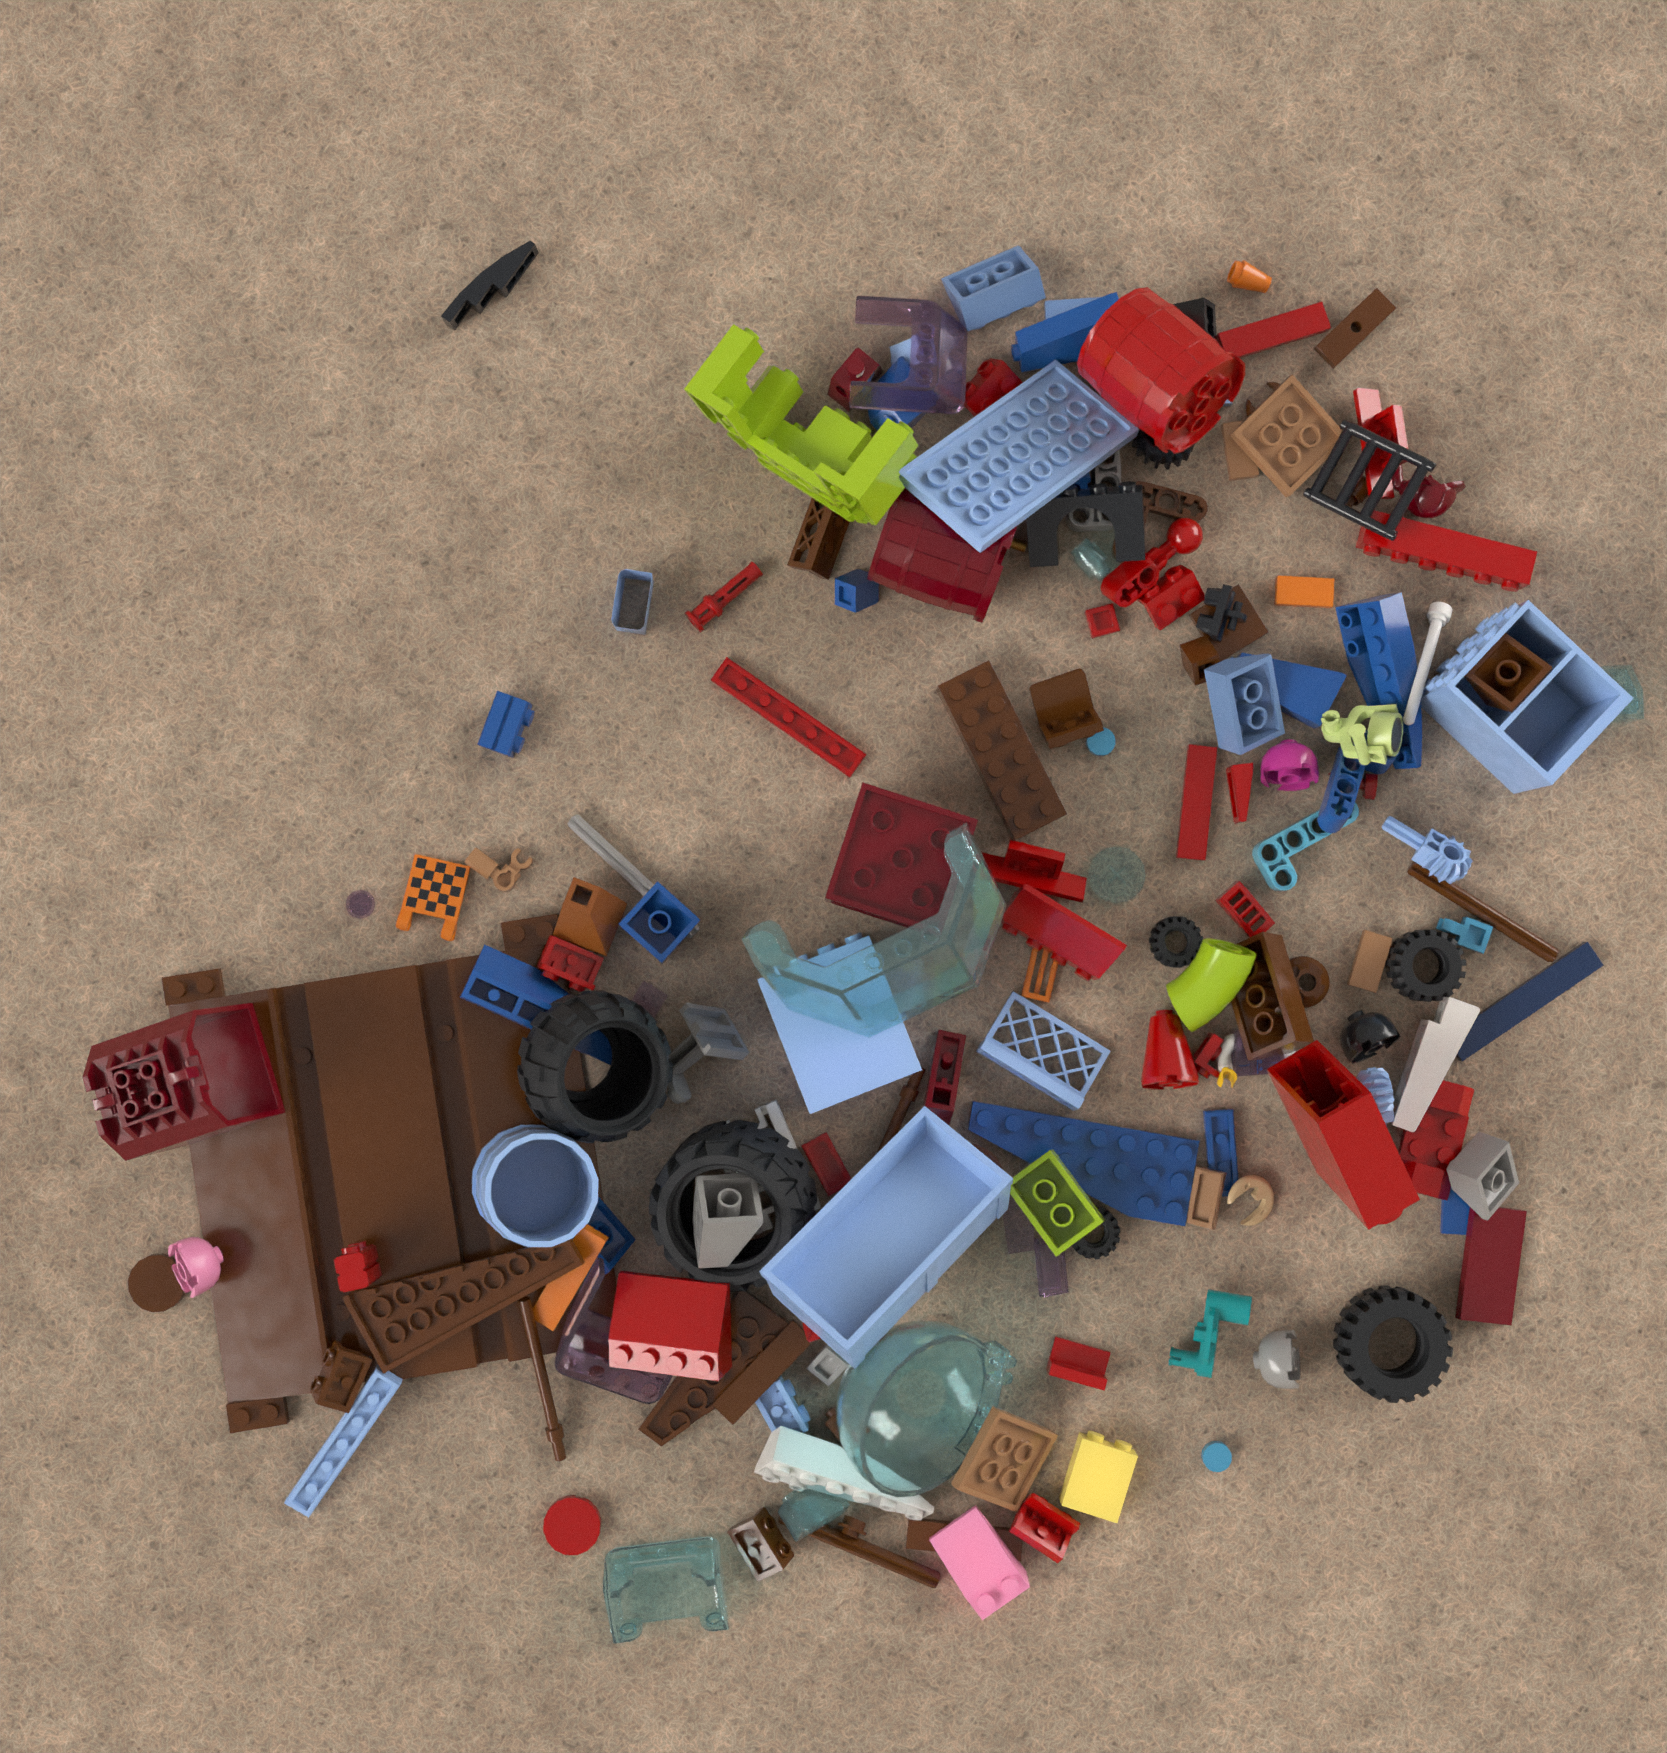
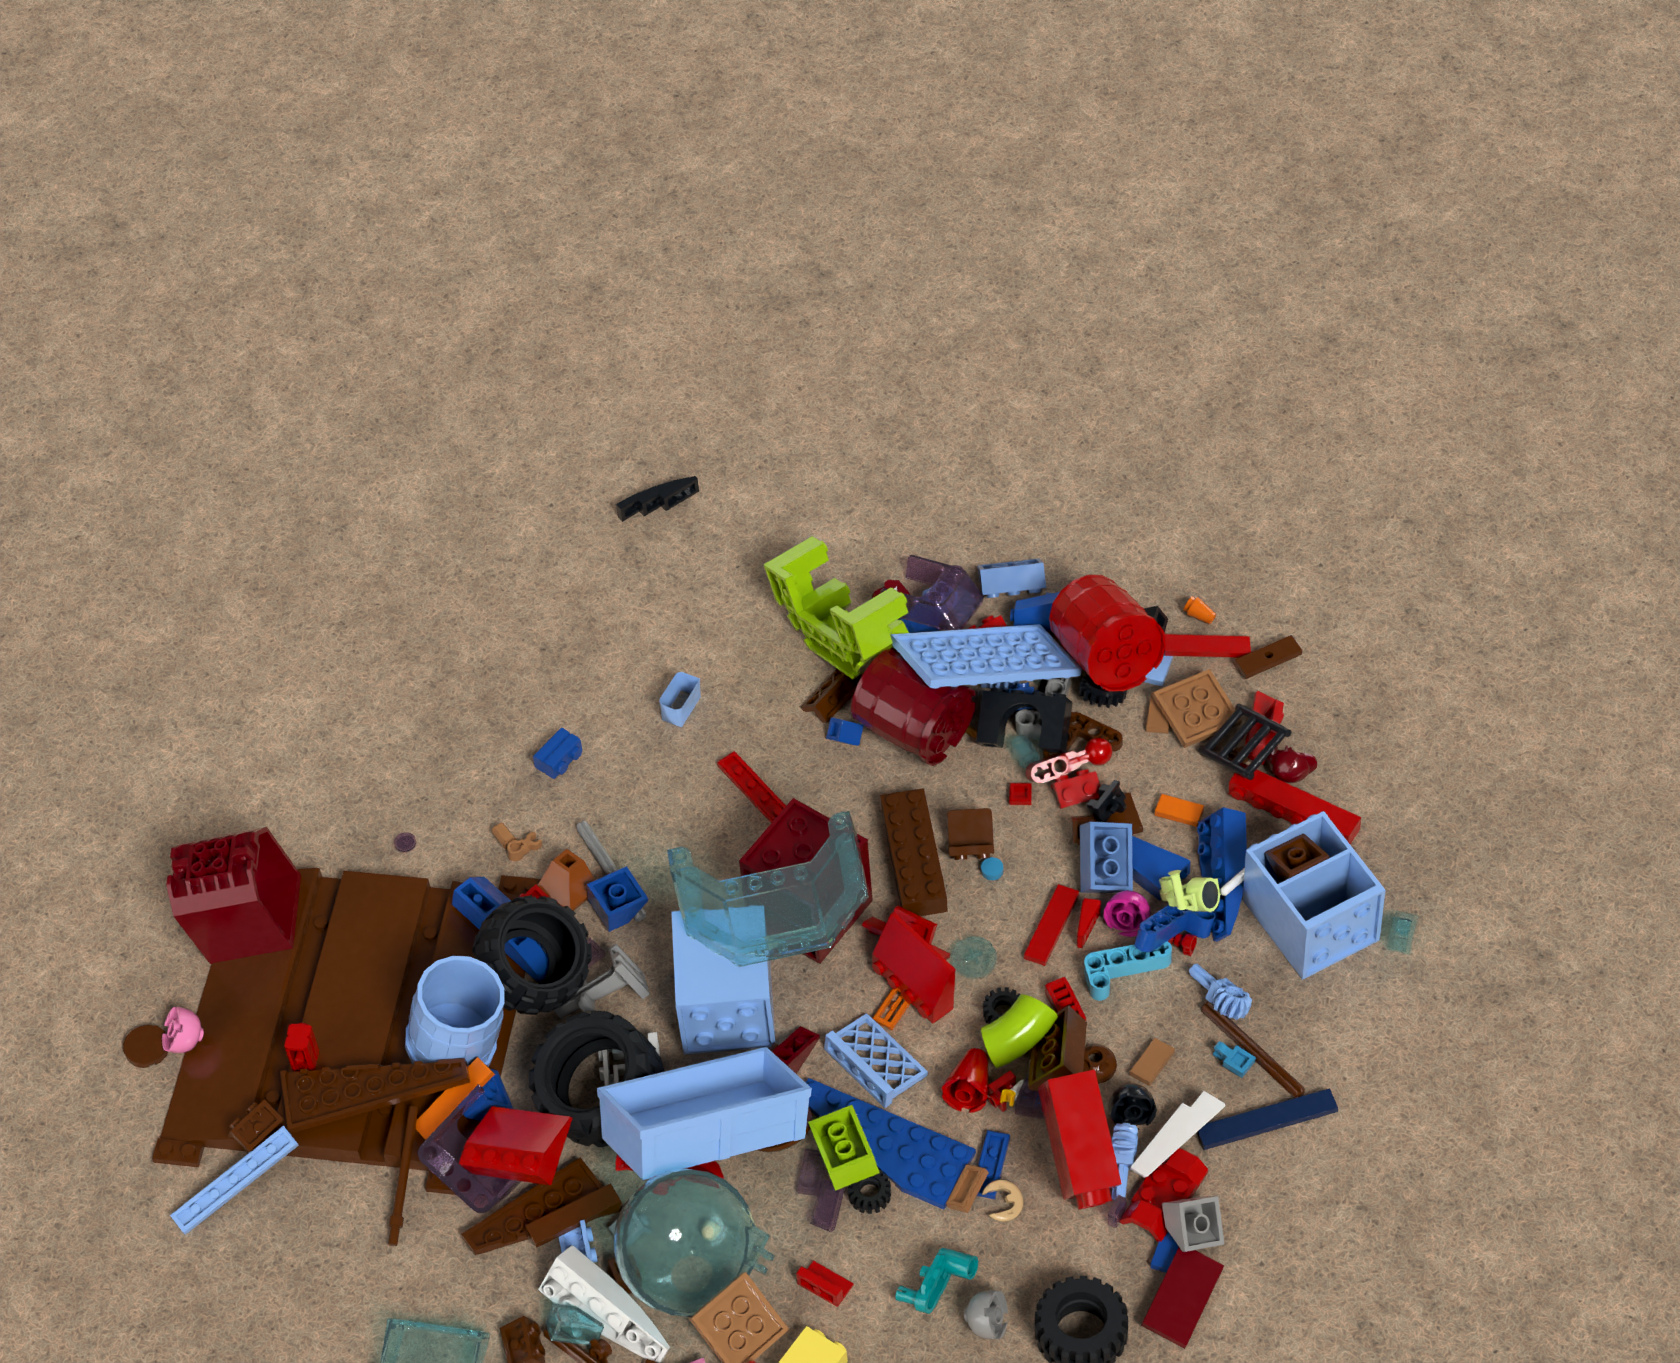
camera: 20 degrees right, 35 degrees down
(434, 890) = (461, 845): orange flag -> none
(572, 1525) = (381, 1294): red tile -> none
(724, 1217) = (583, 1066): light grey slope -> none
(750, 573) = (737, 717): red pin -> none
(1449, 965) = (1197, 1053): black tyre -> none

